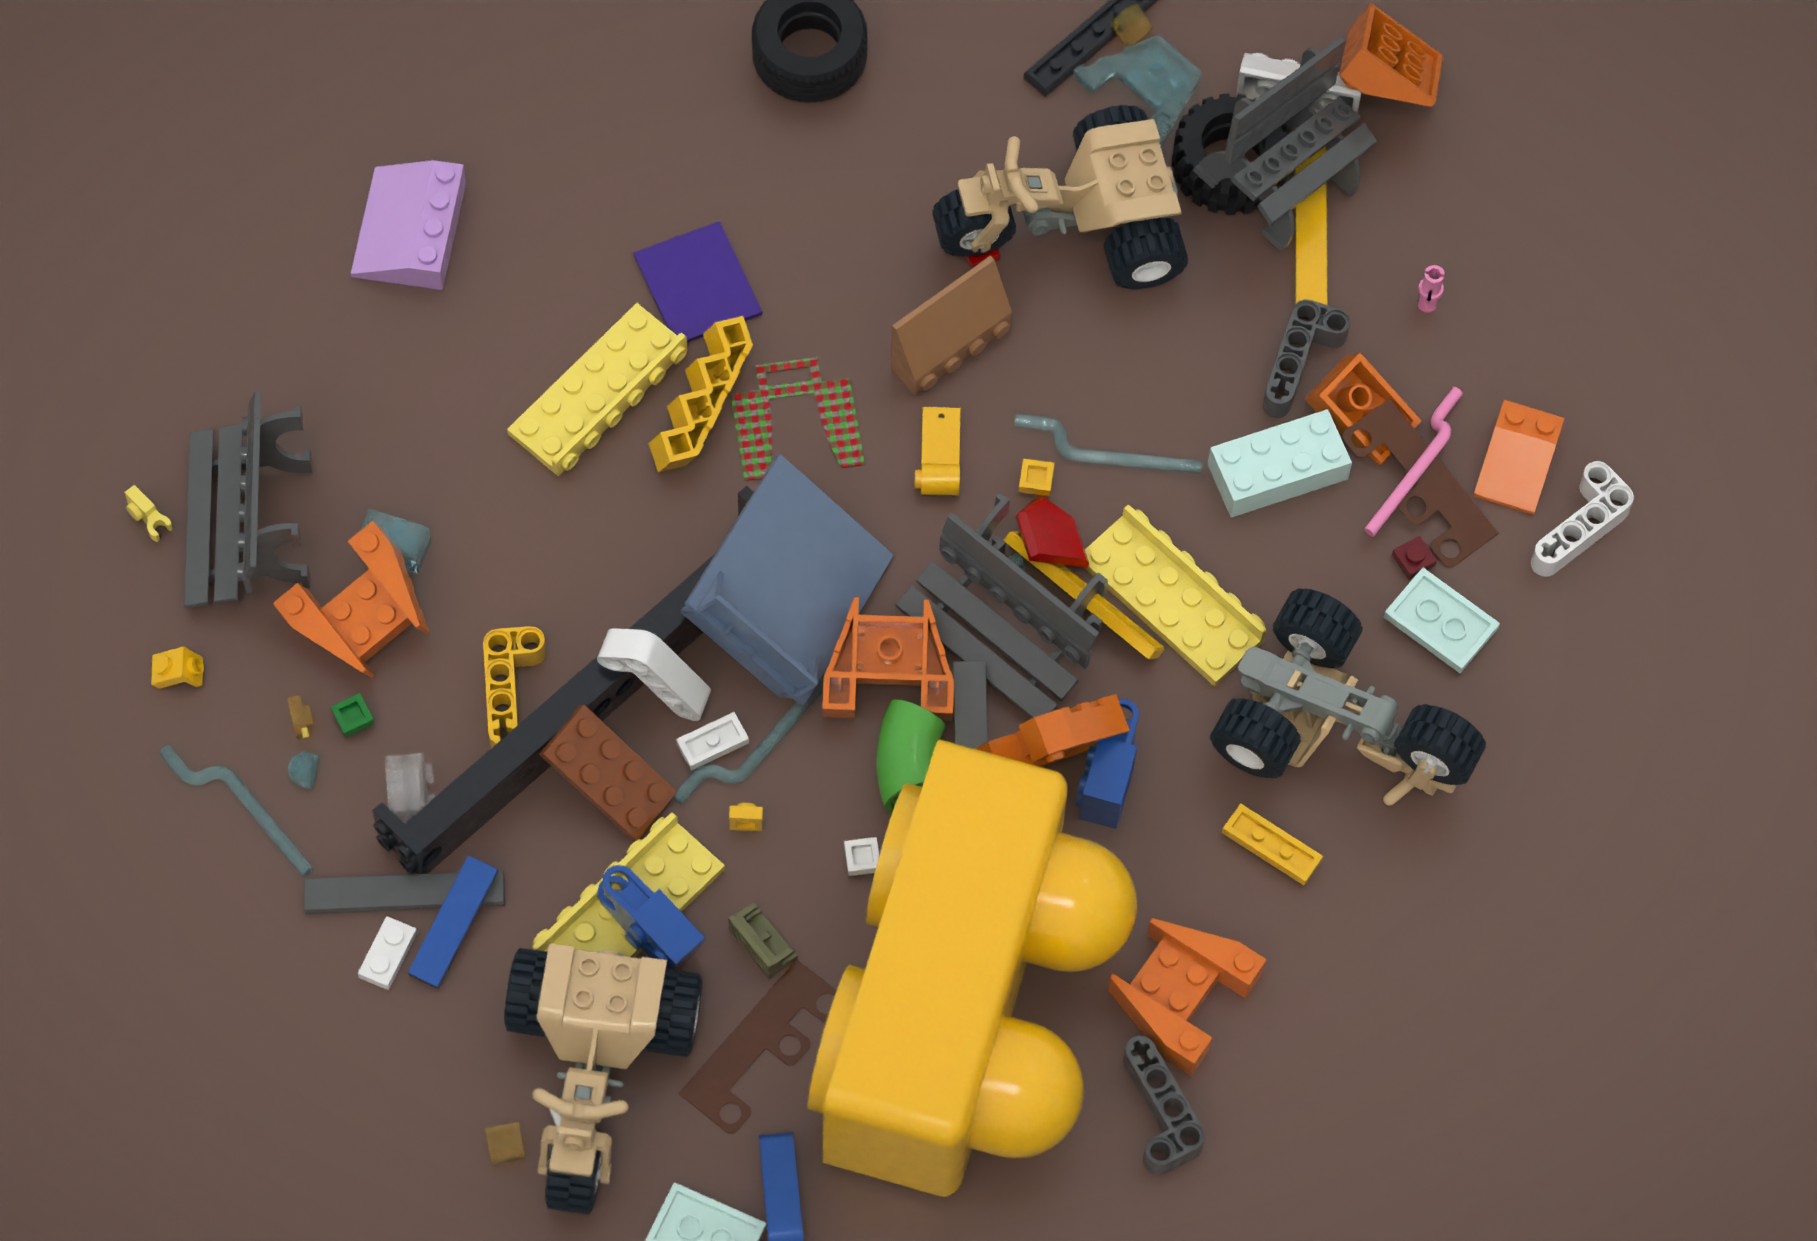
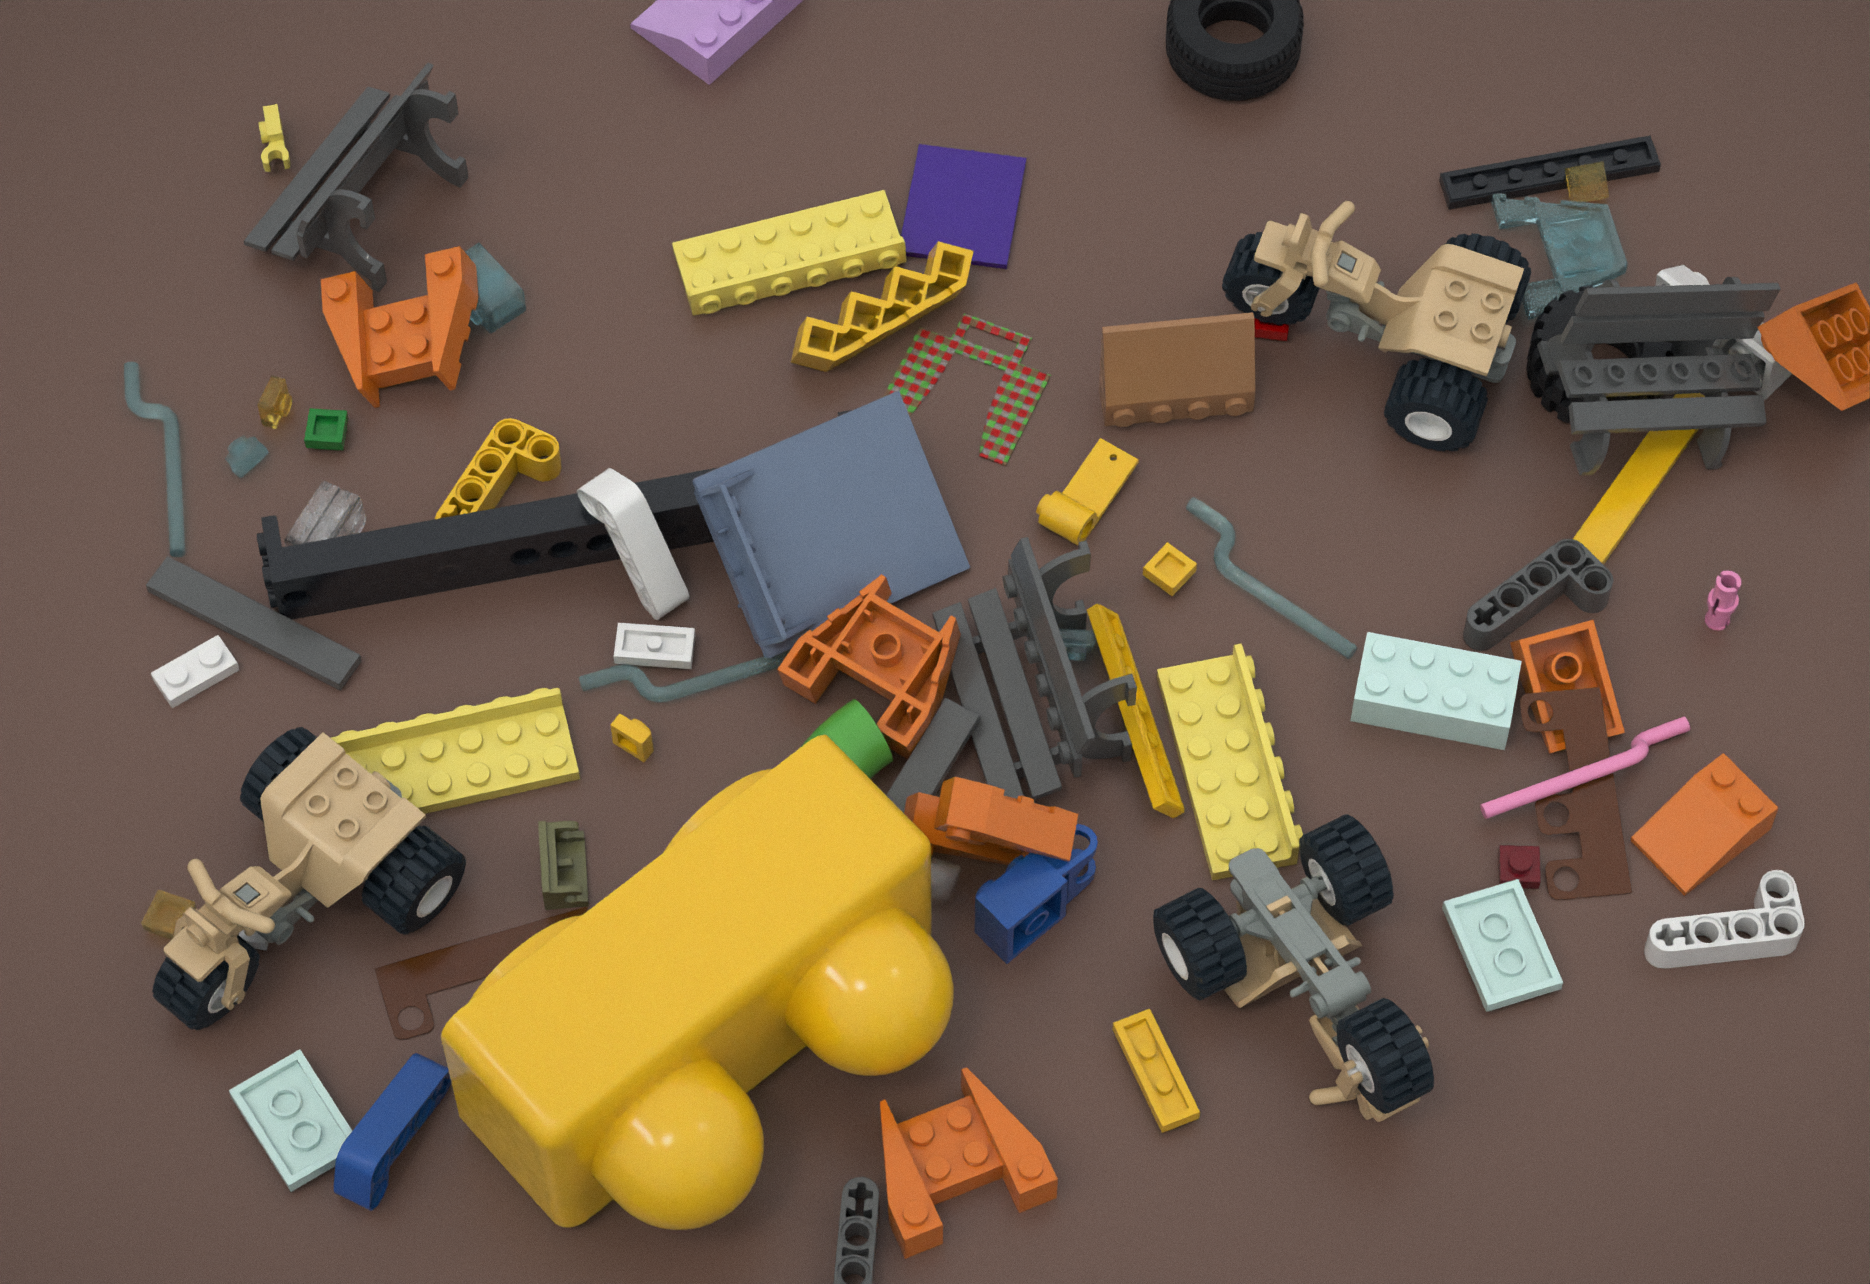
camera: 35 degrees right, 5 degrees down
(177, 667) = (198, 295): yellow bracket -> none
(453, 922) = (275, 675): blue tile -> none
(608, 772) = (521, 613): dark orange plate -> none
(649, 918) = (452, 778): blue brick -> none
(1051, 534) = (1141, 631): red tile -> none

